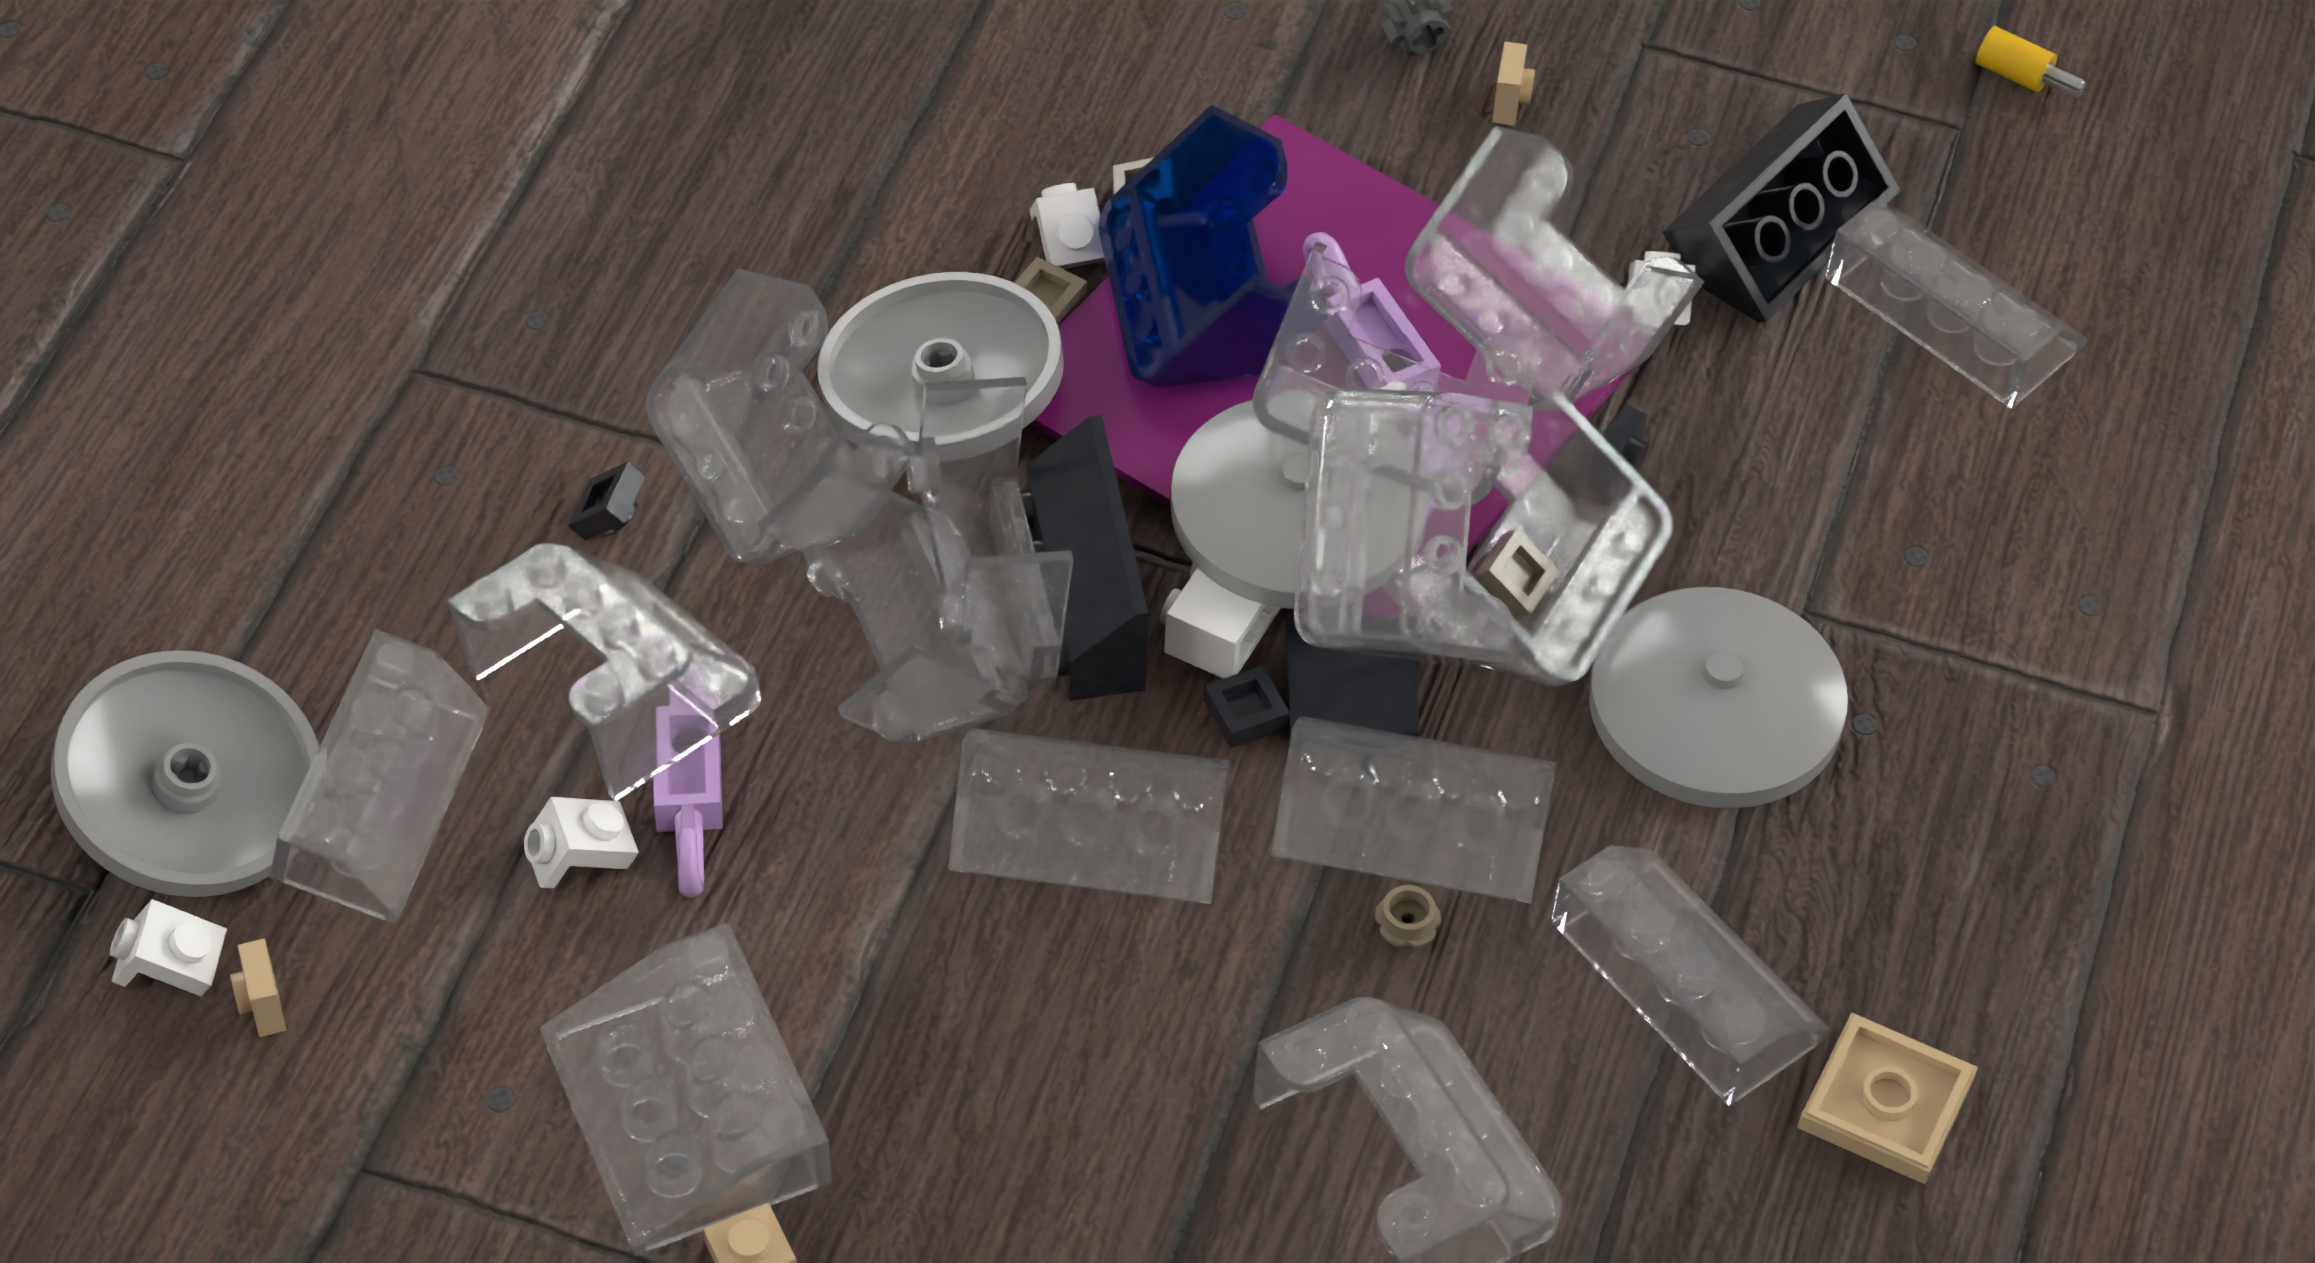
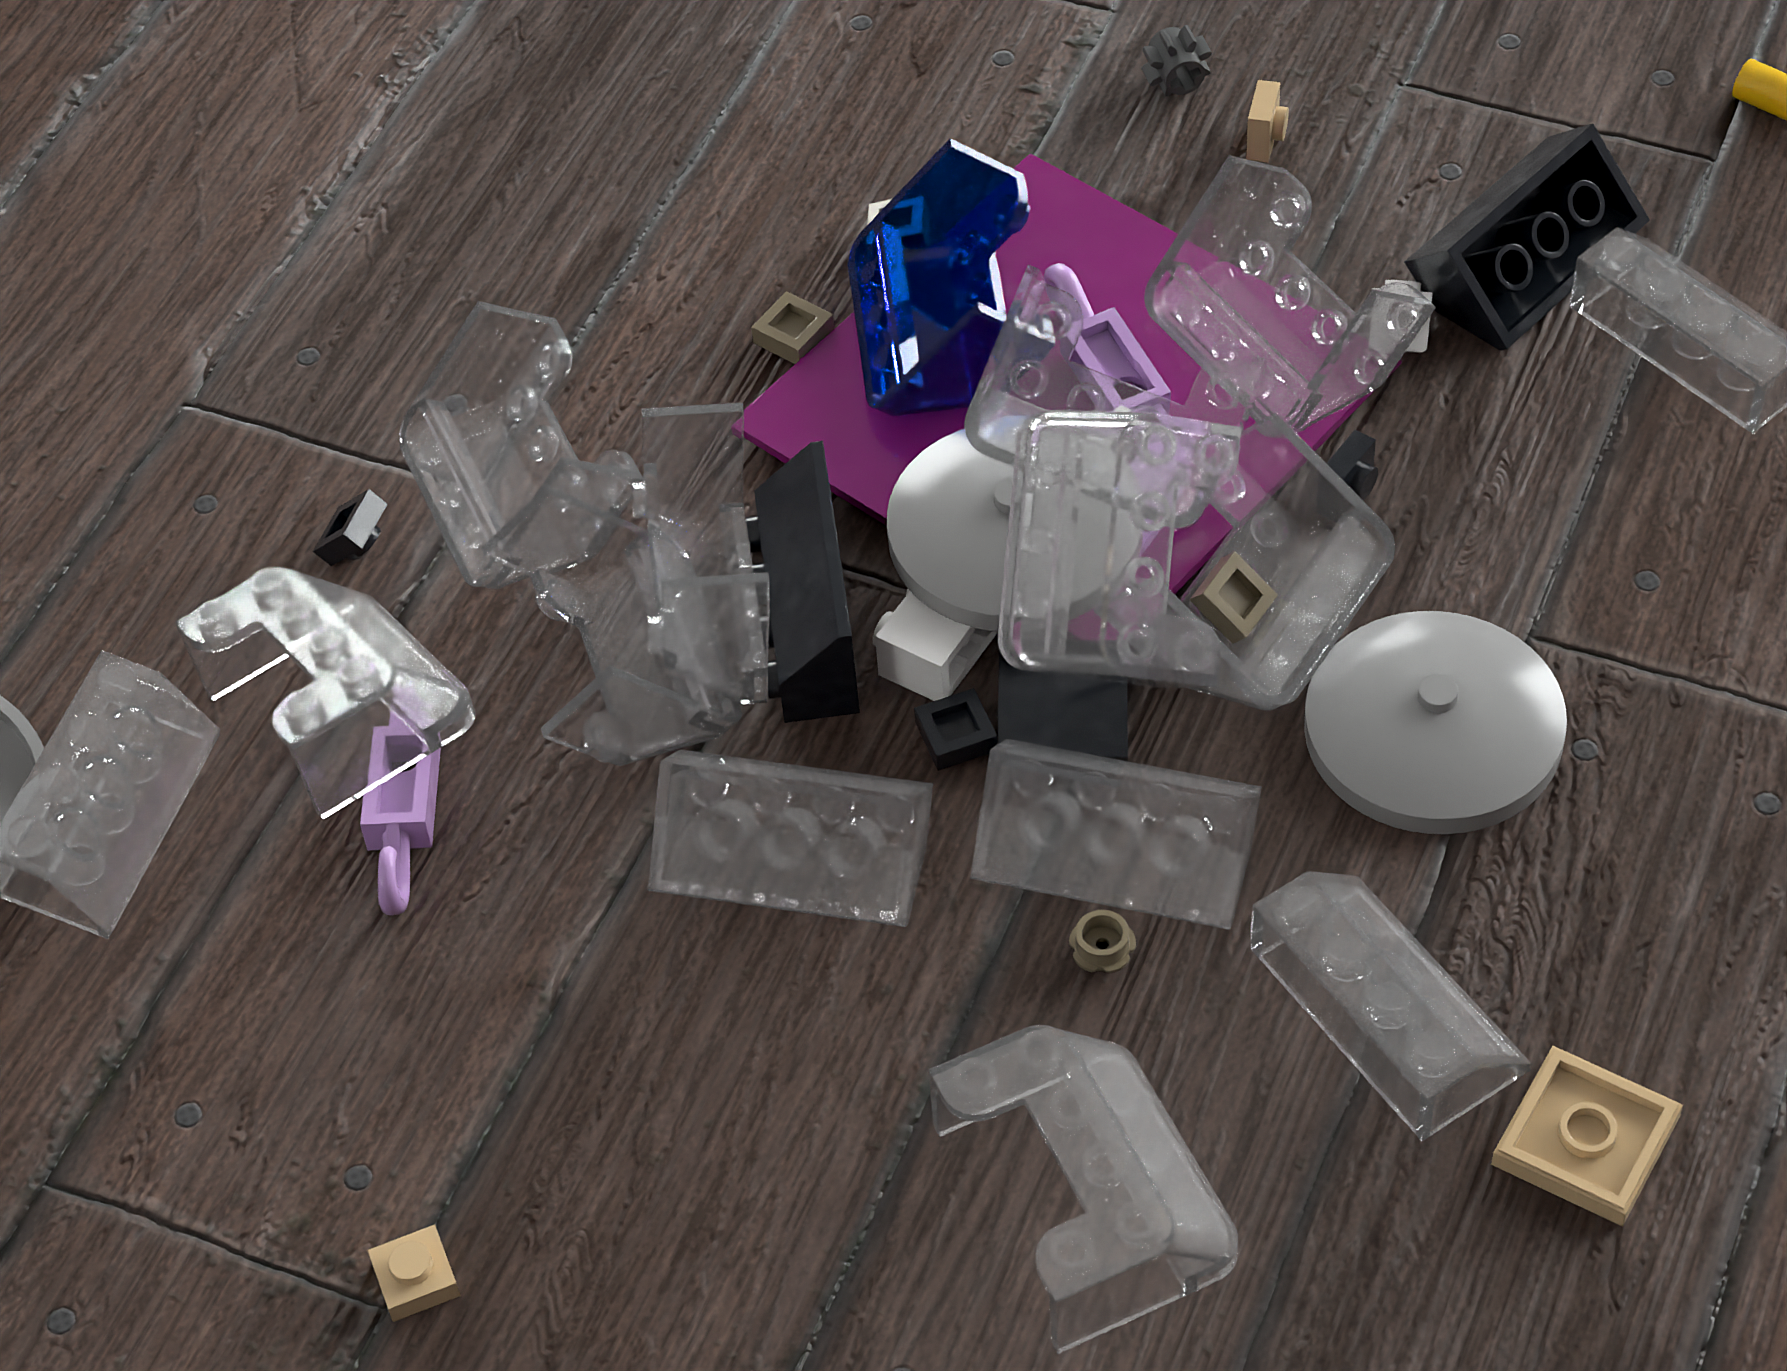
camera: 10 degrees right, 0 degrees up
(580, 836) = (288, 853): white bracket -> none
(687, 1092) = (364, 1112): clear slope -> none
(936, 332) = (681, 361): light grey dish -> none
(1068, 225) = (820, 261): white bracket -> none

